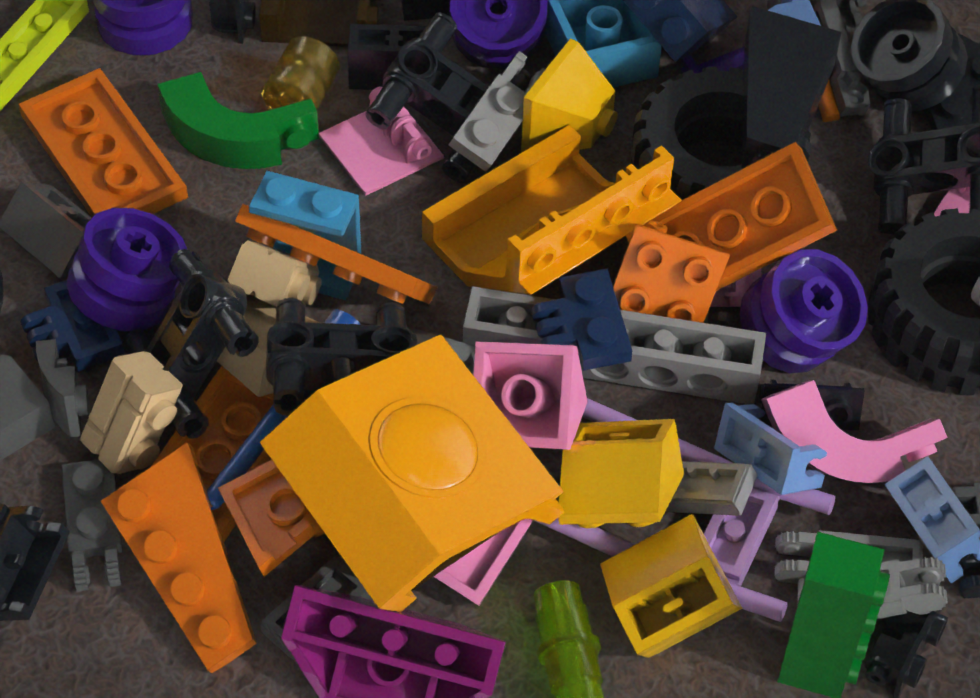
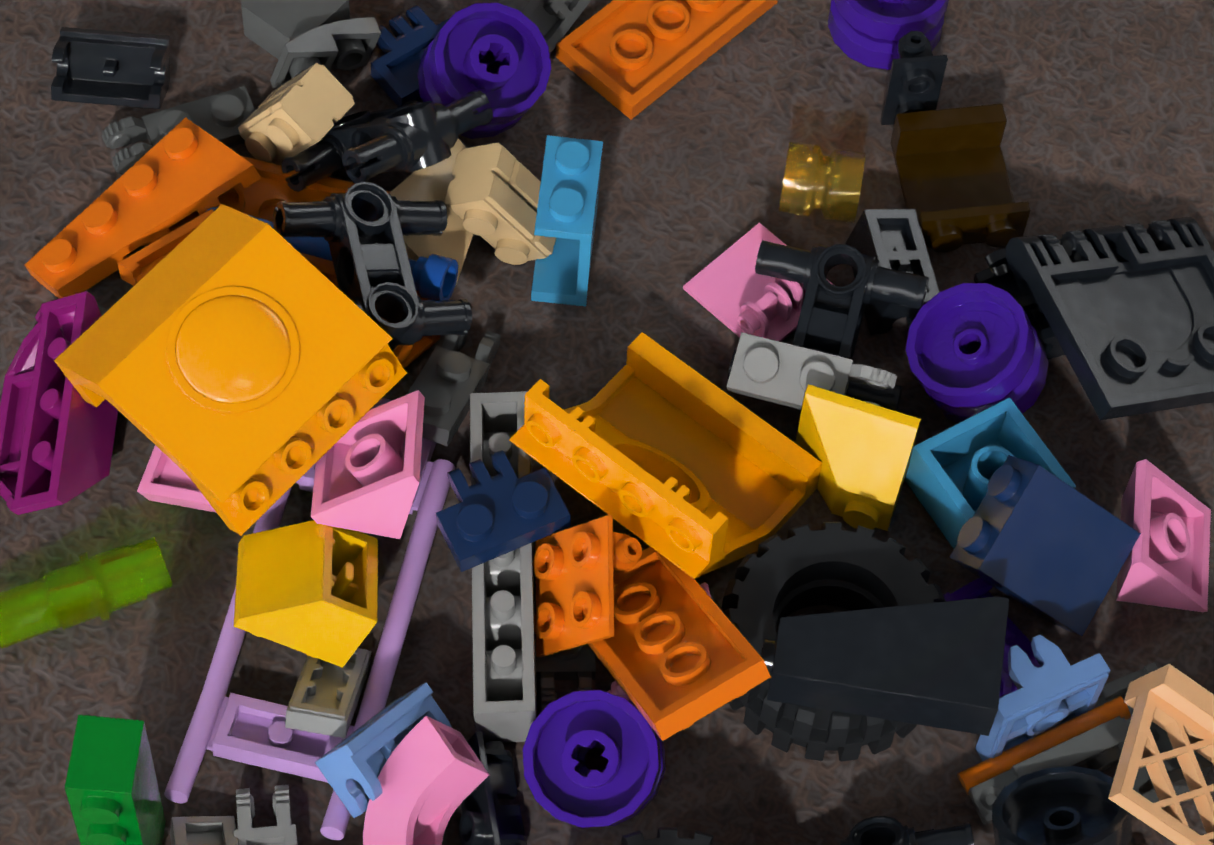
camera: 75 degrees right, 5 degrees up
(232, 136) = (732, 99): green arch -> none
(349, 264) = (534, 291): orange wing -> none
(668, 587) = (170, 661): yellow slope -> none

